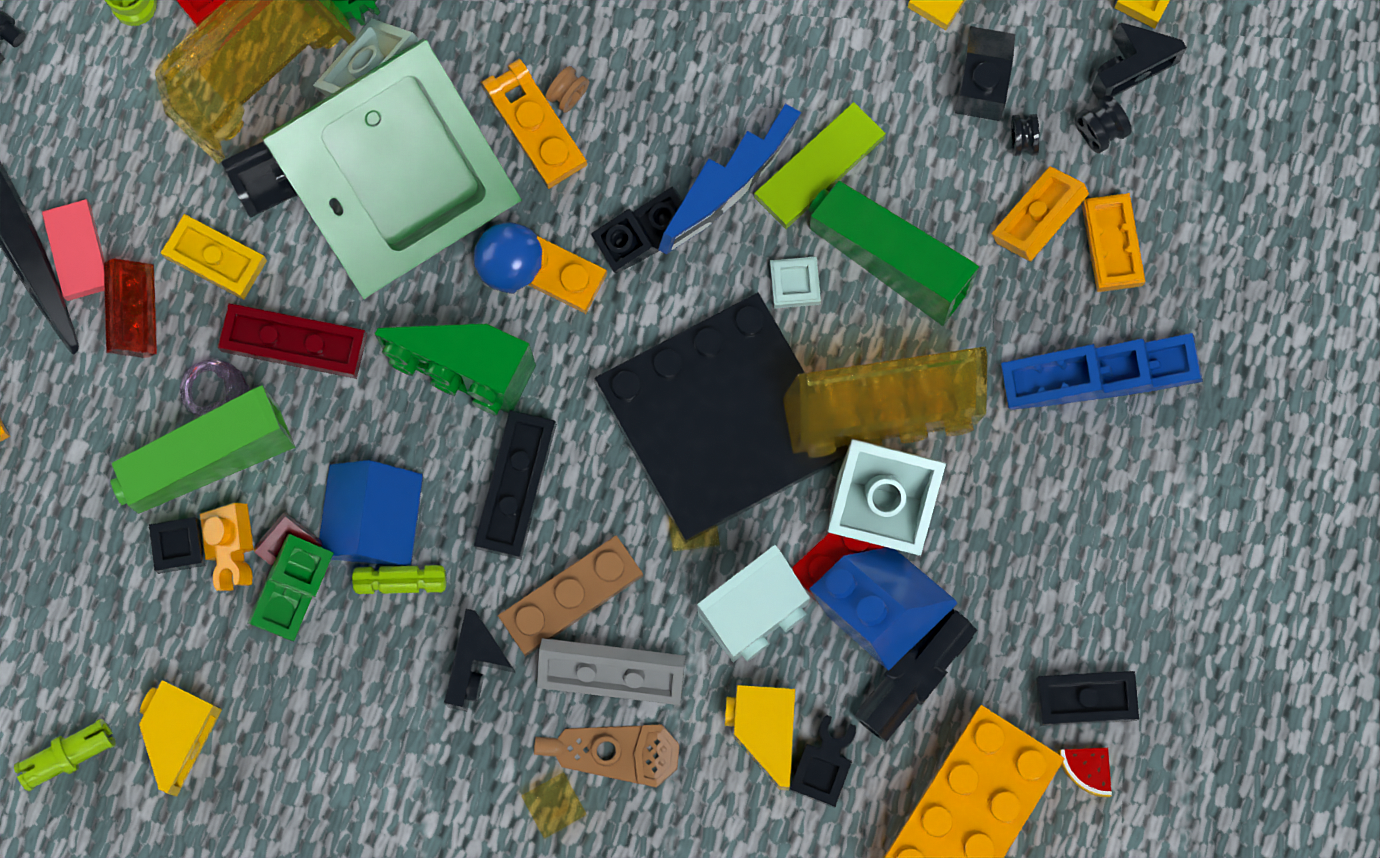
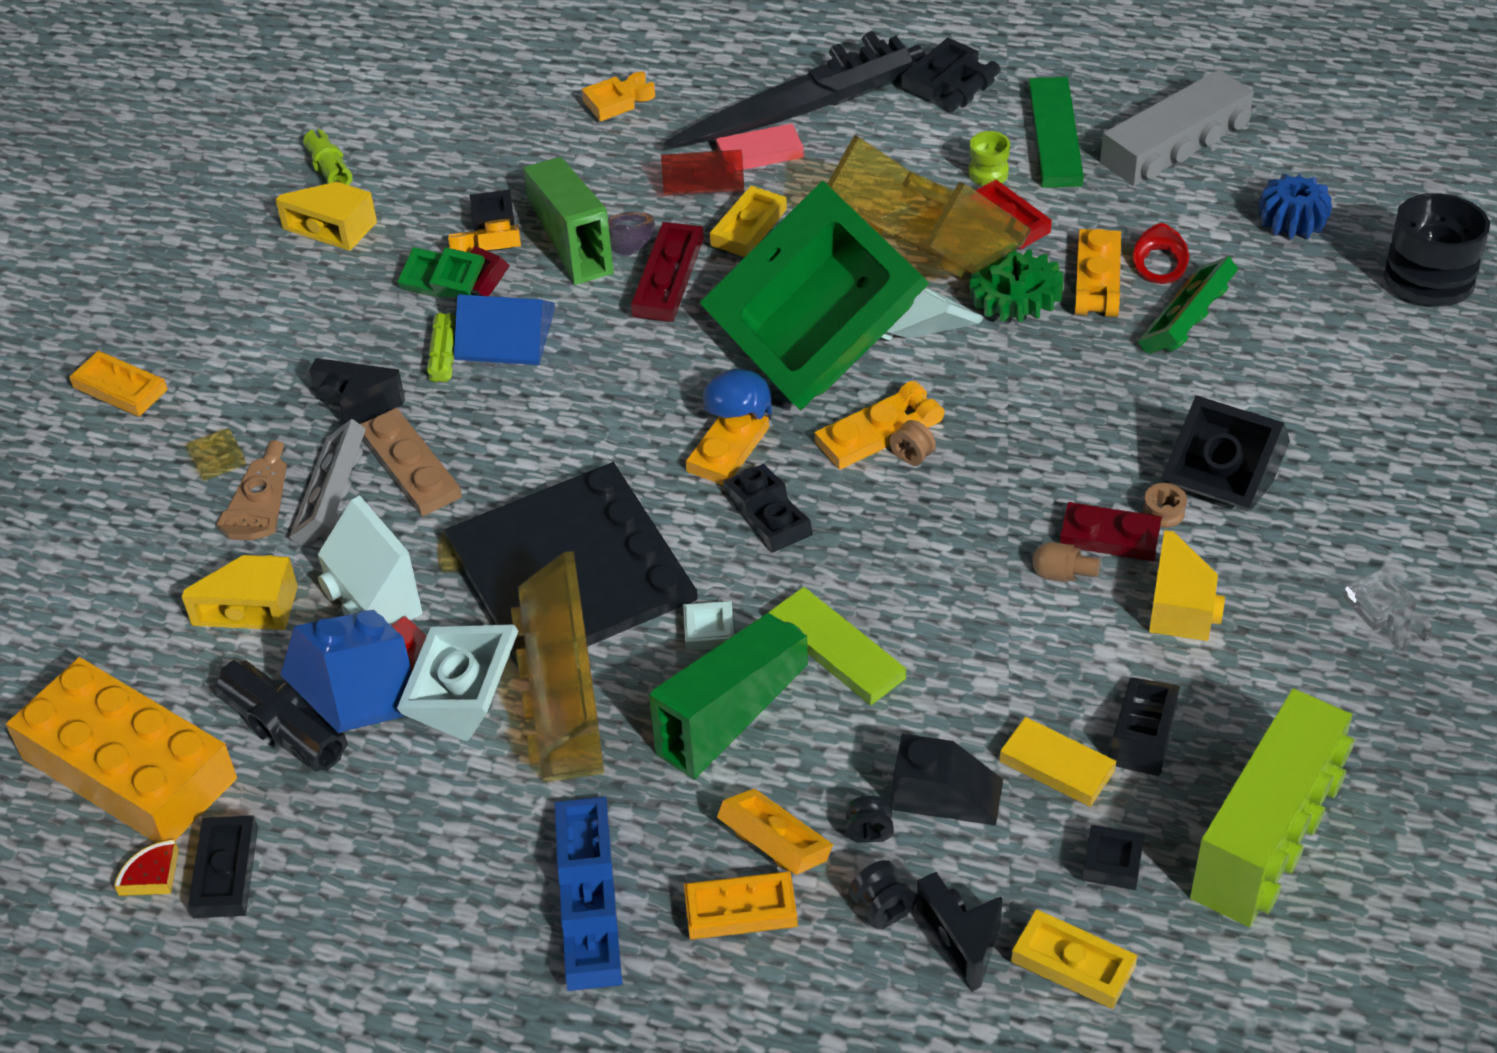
camera: 90 degrees right, 30 degrees down
(463, 358) = (625, 366): green slope -> none
(515, 485) = (518, 416): black plate -> none
(721, 187) = (800, 545): blue slope -> none
(821, 769) = (201, 639): black plate -> none

